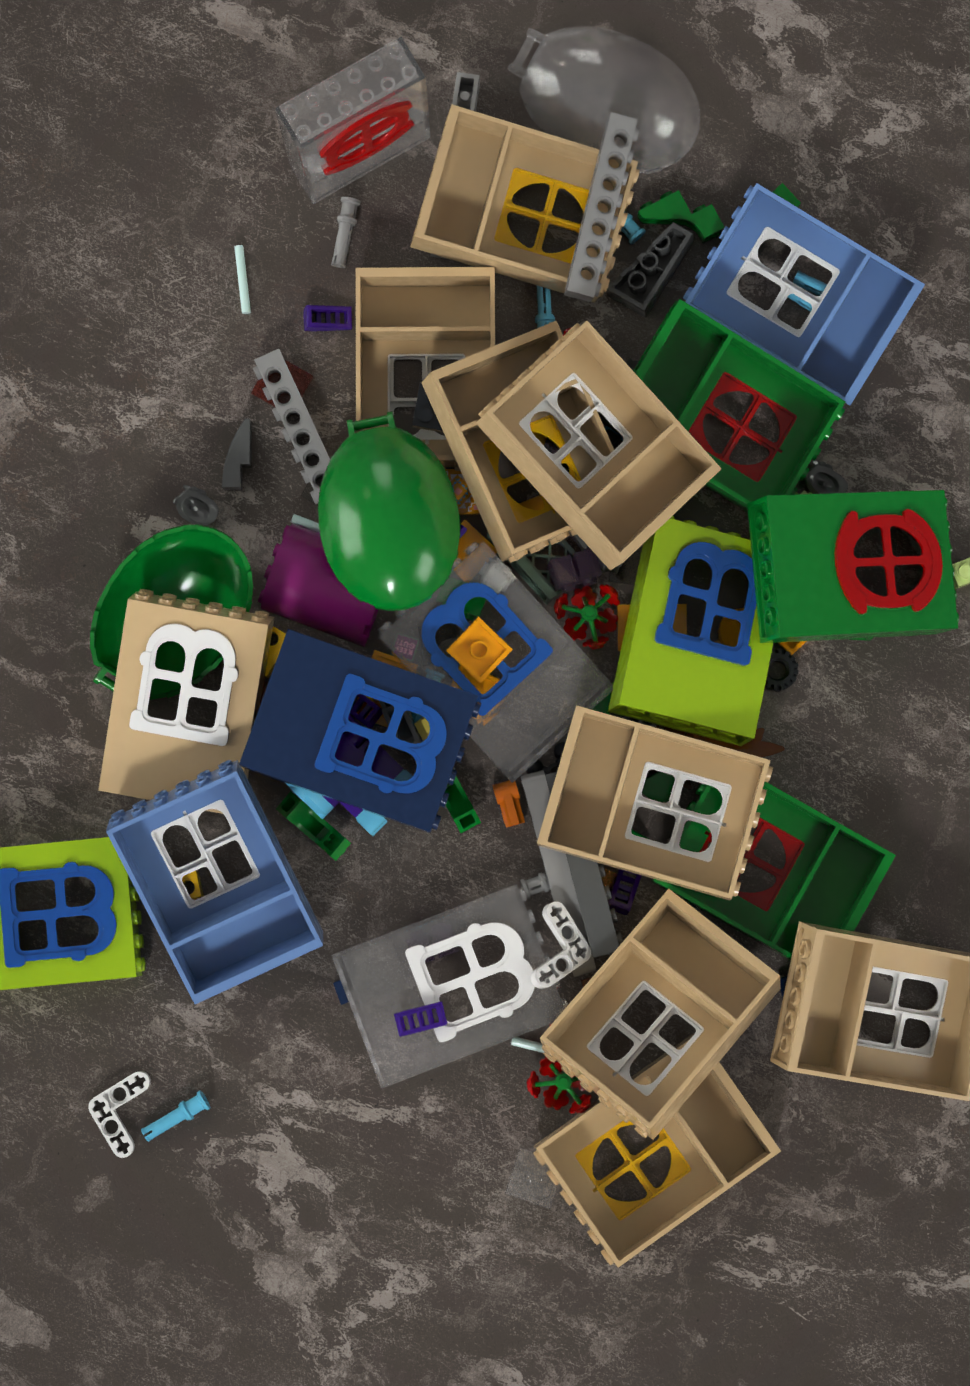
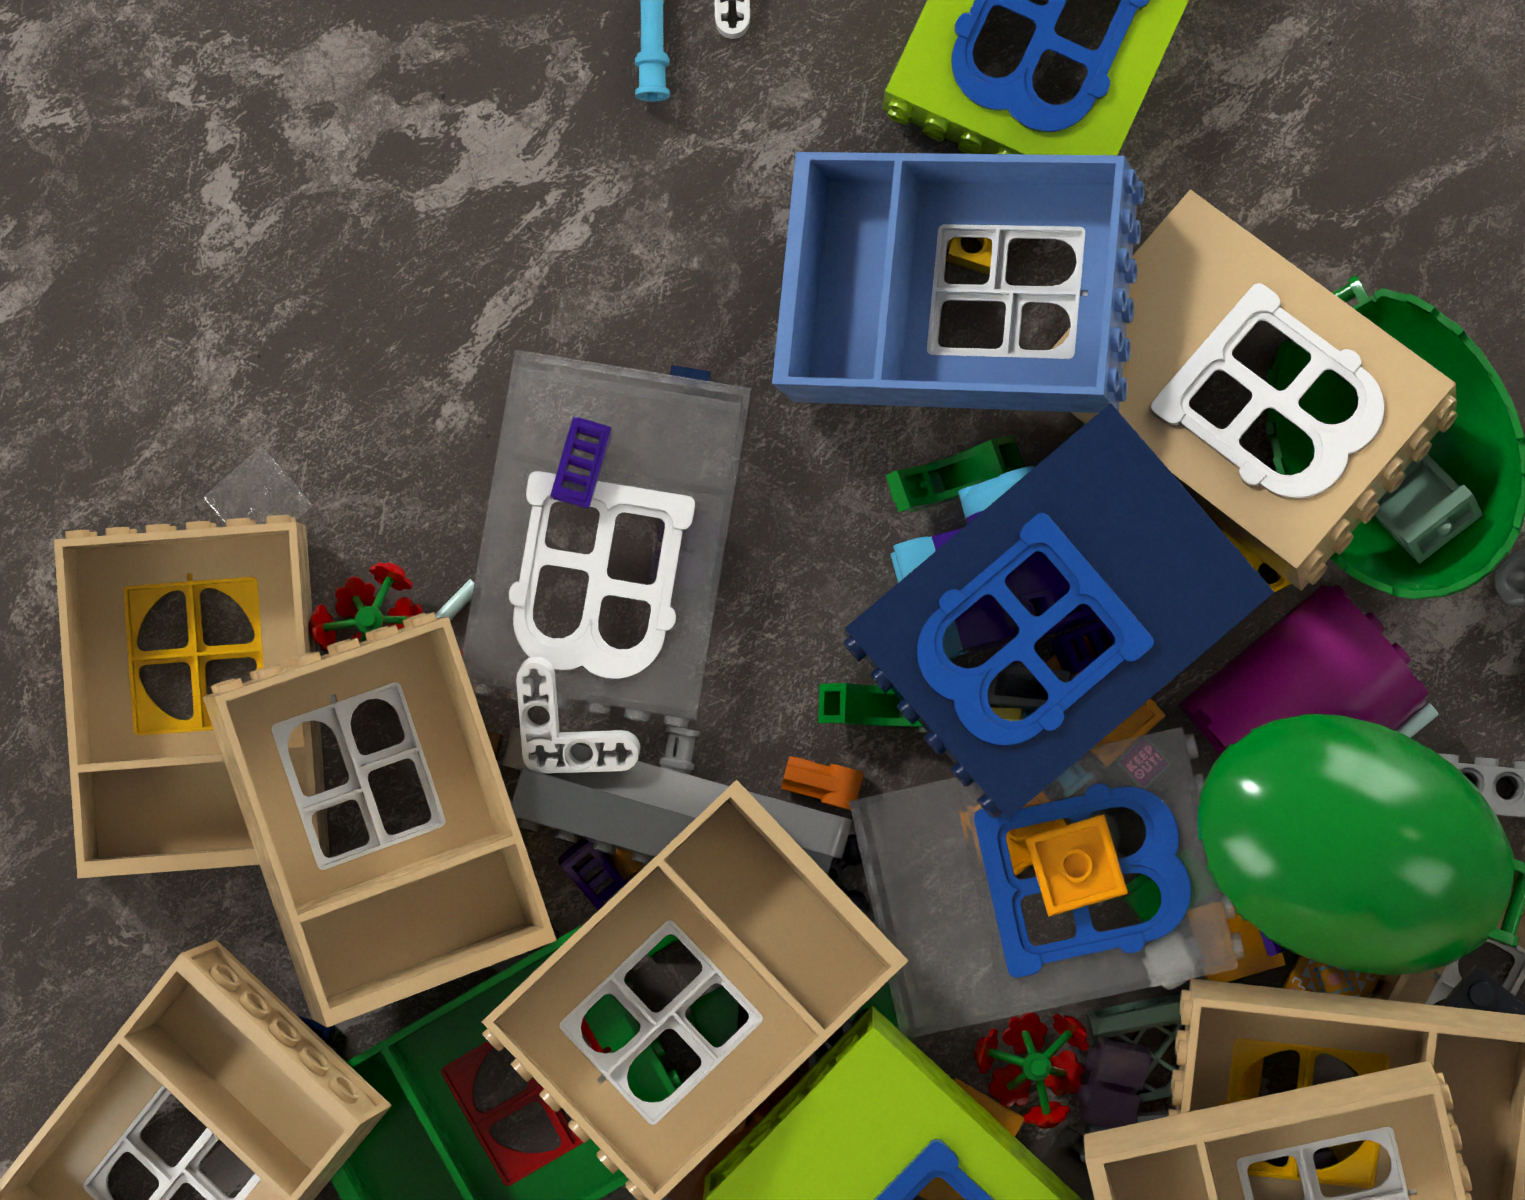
camera: 120 degrees right, 0 degrees up
(196, 577) = (1427, 509): none -> sand green panel

